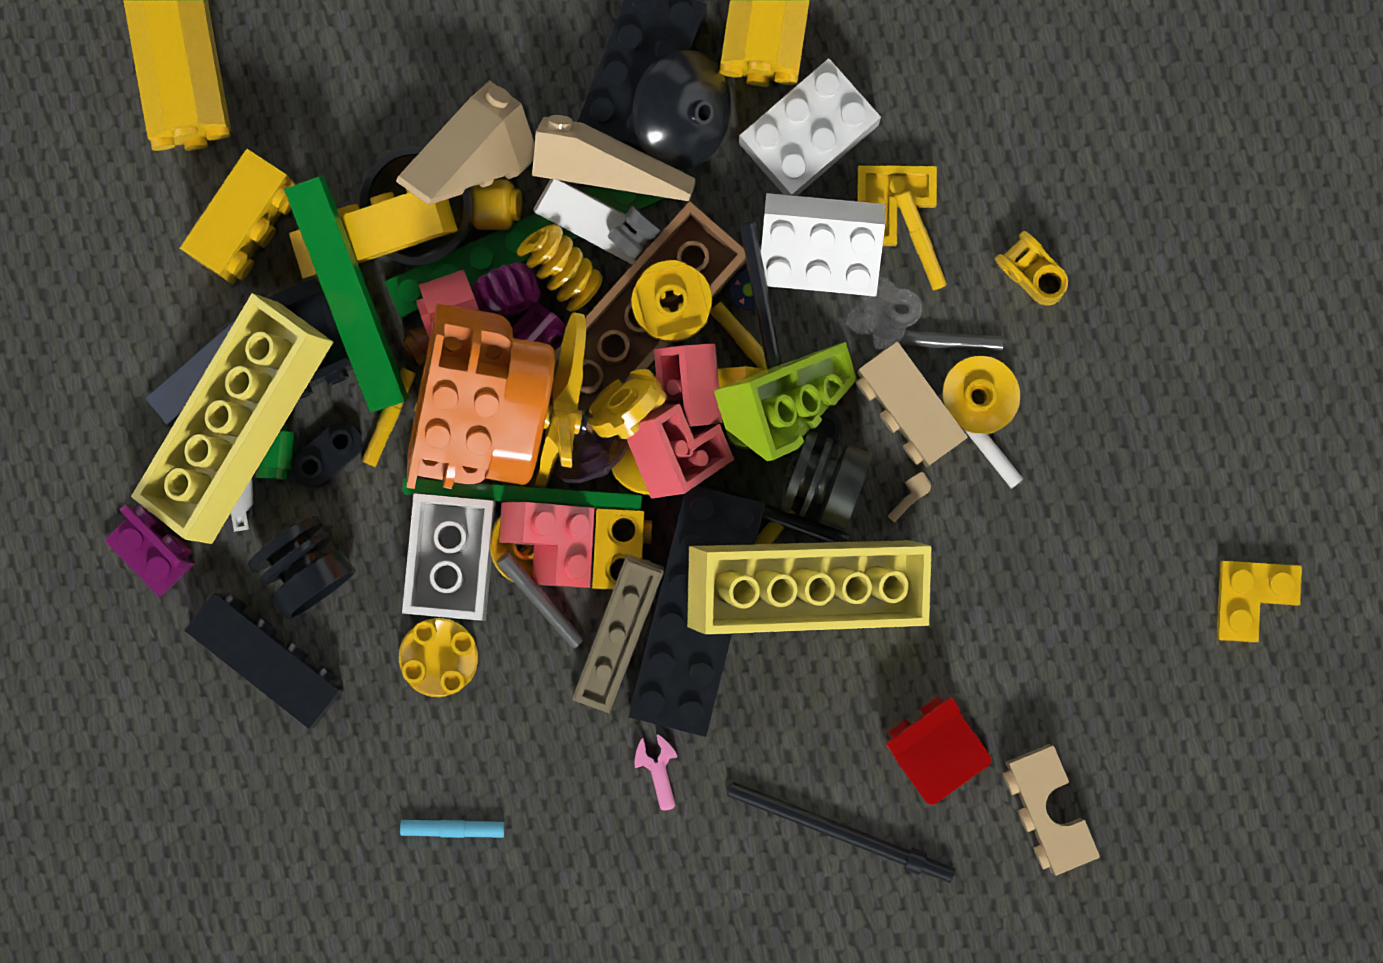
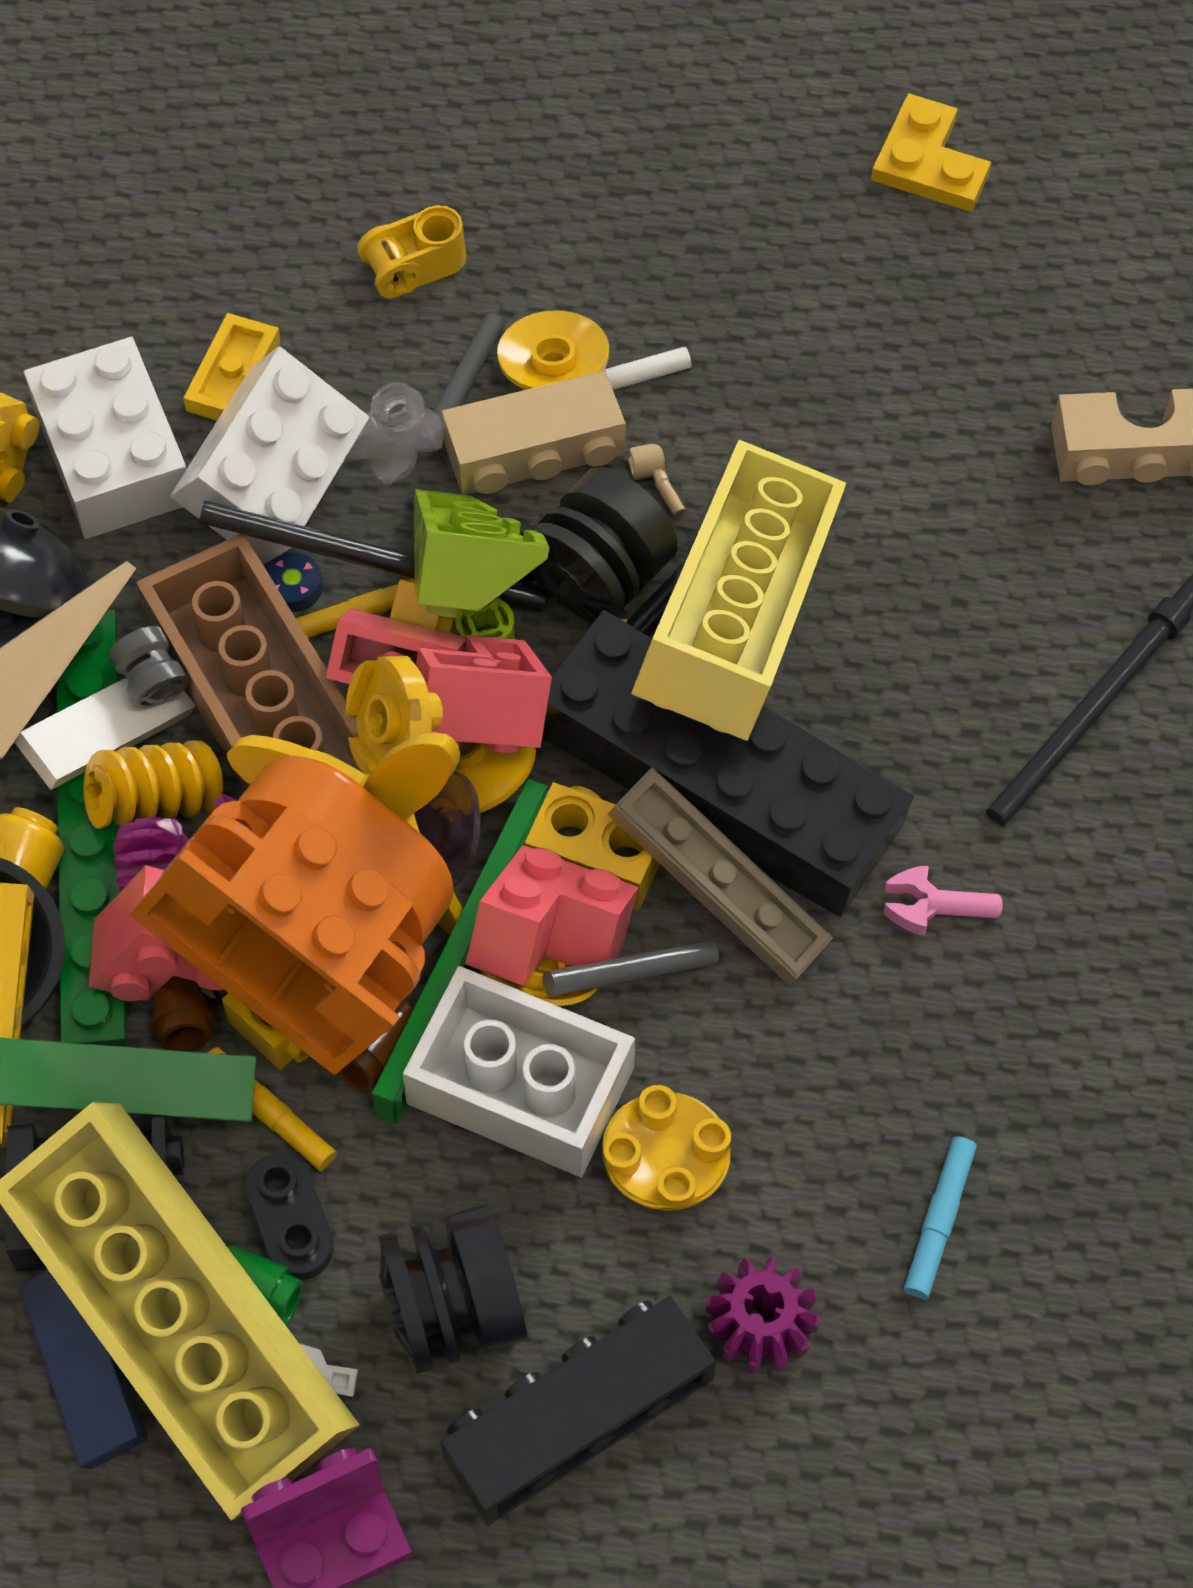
camera: 75 degrees left, 25 degrees down
(367, 747) = (749, 1332): none -> magenta gear
(684, 282) = (273, 664): yellow plate -> none
(921, 240) = (324, 359): yellow piece -> none
(937, 750) = (1018, 543): red bracket -> none

